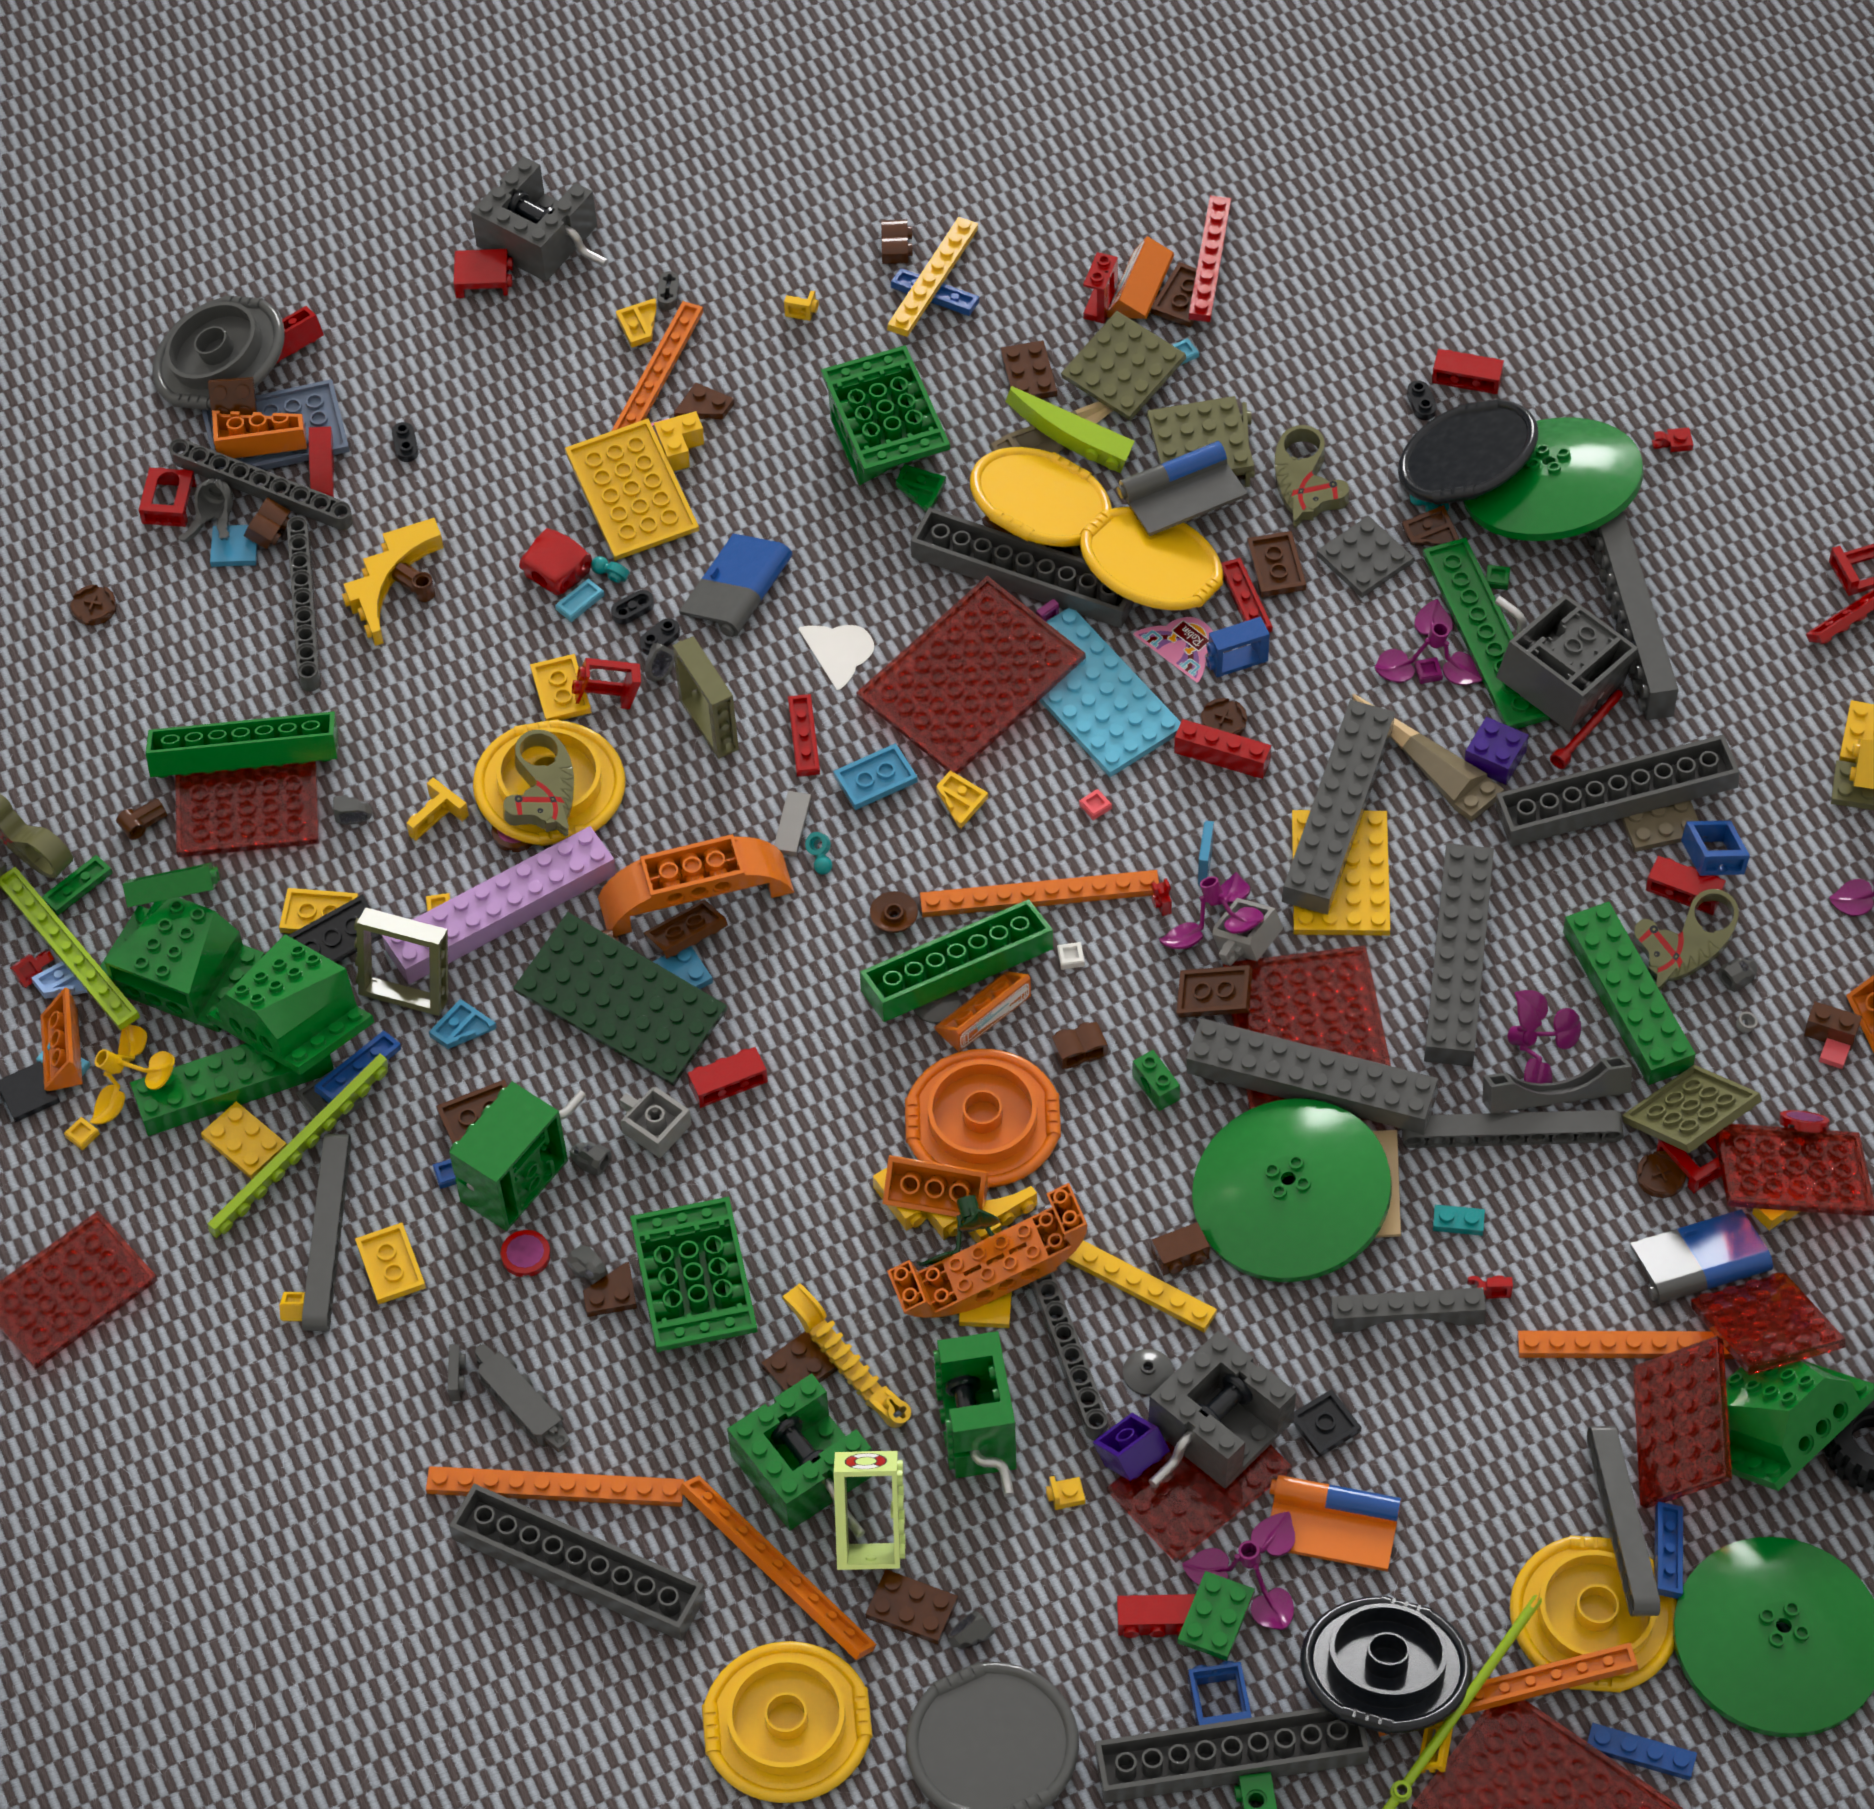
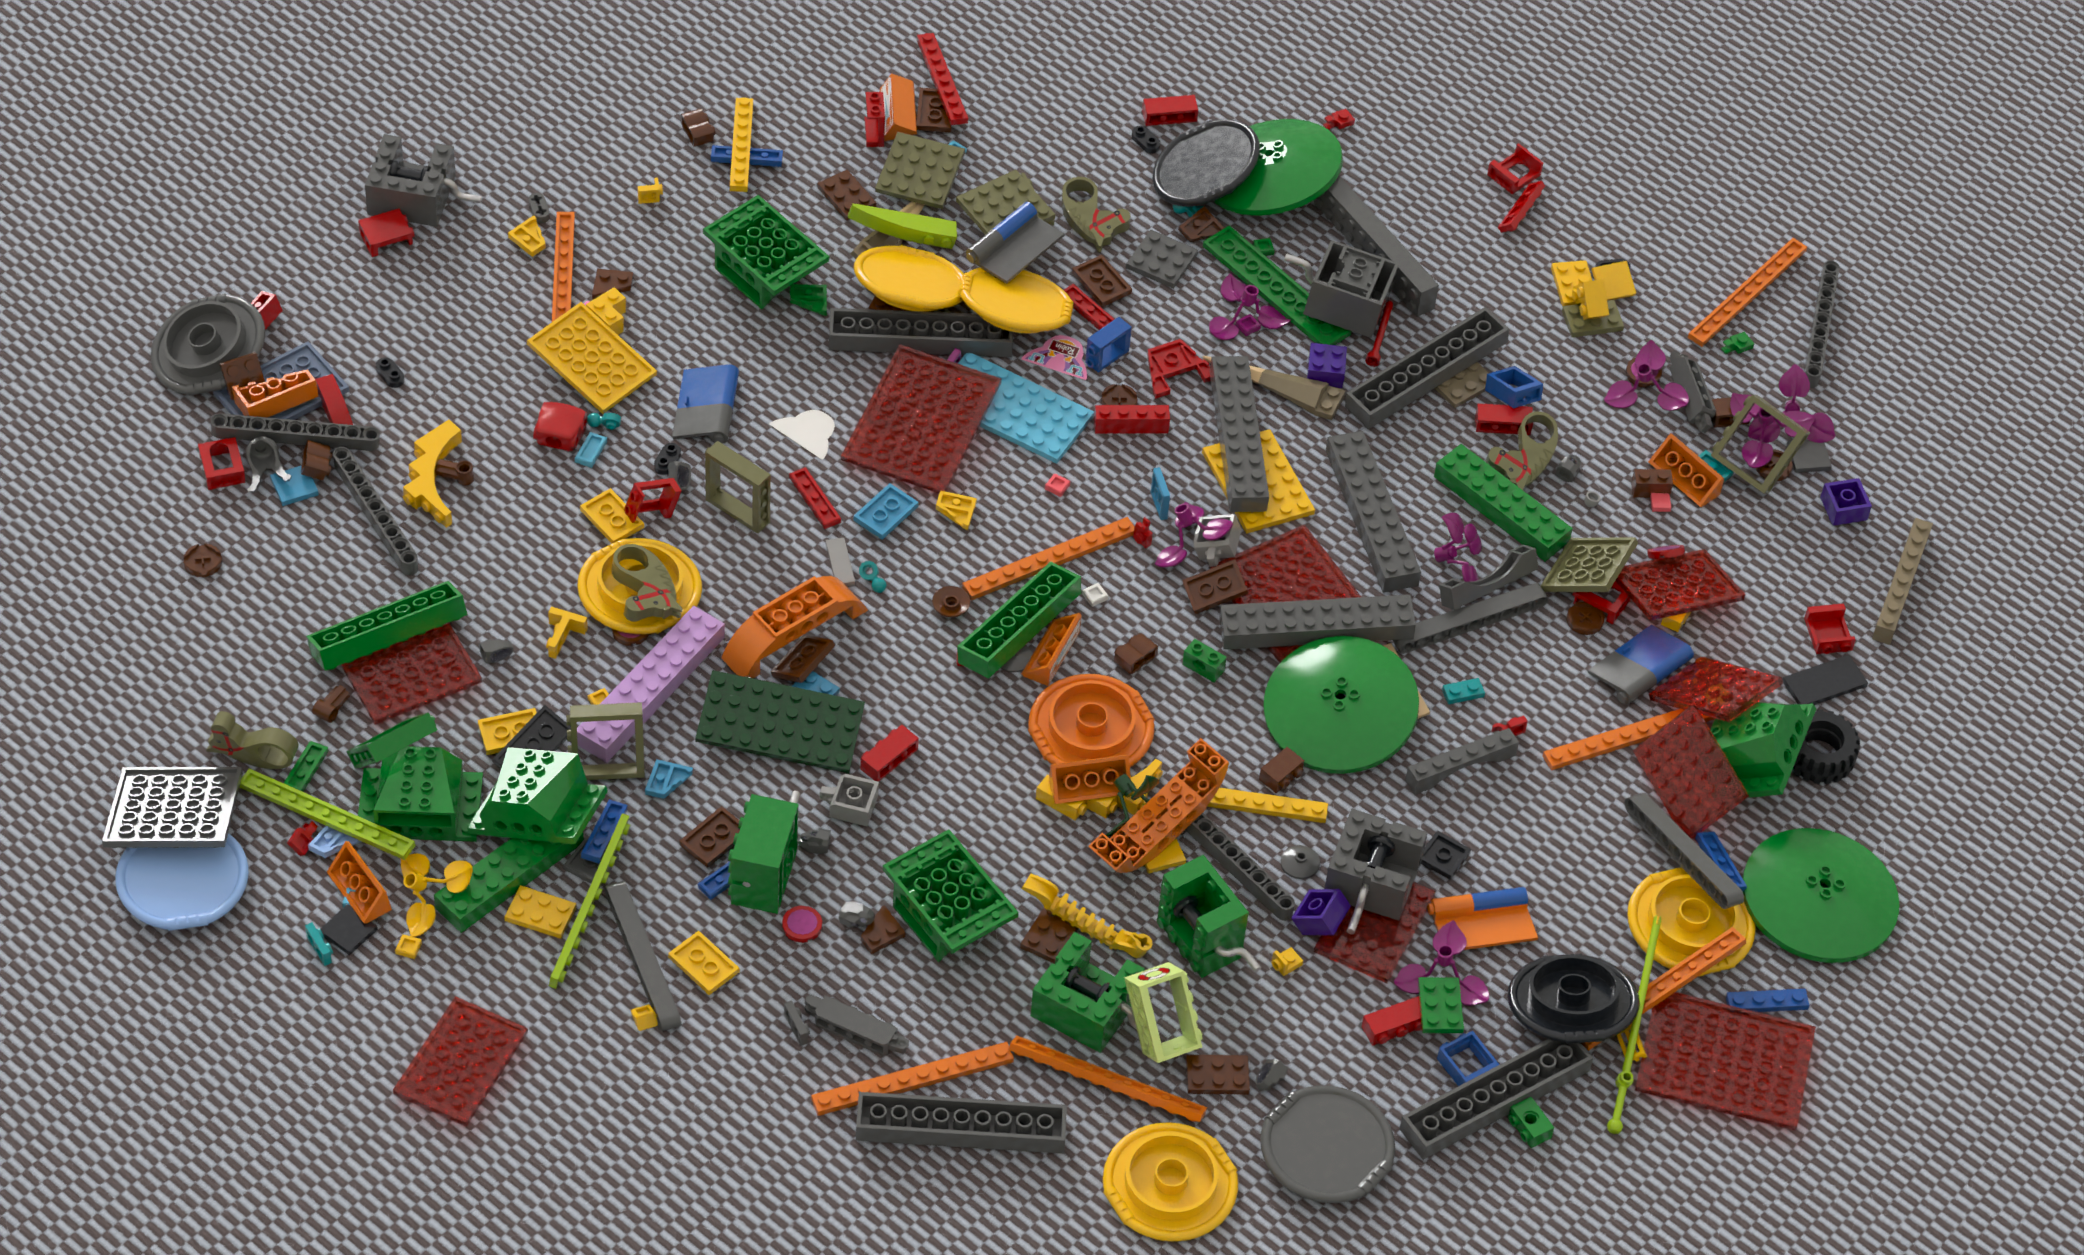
camera: 30 degrees left, 5 degrees down
(631, 607) = (633, 445): black plate -> none
(1307, 689) = (1171, 360): none -> red wing

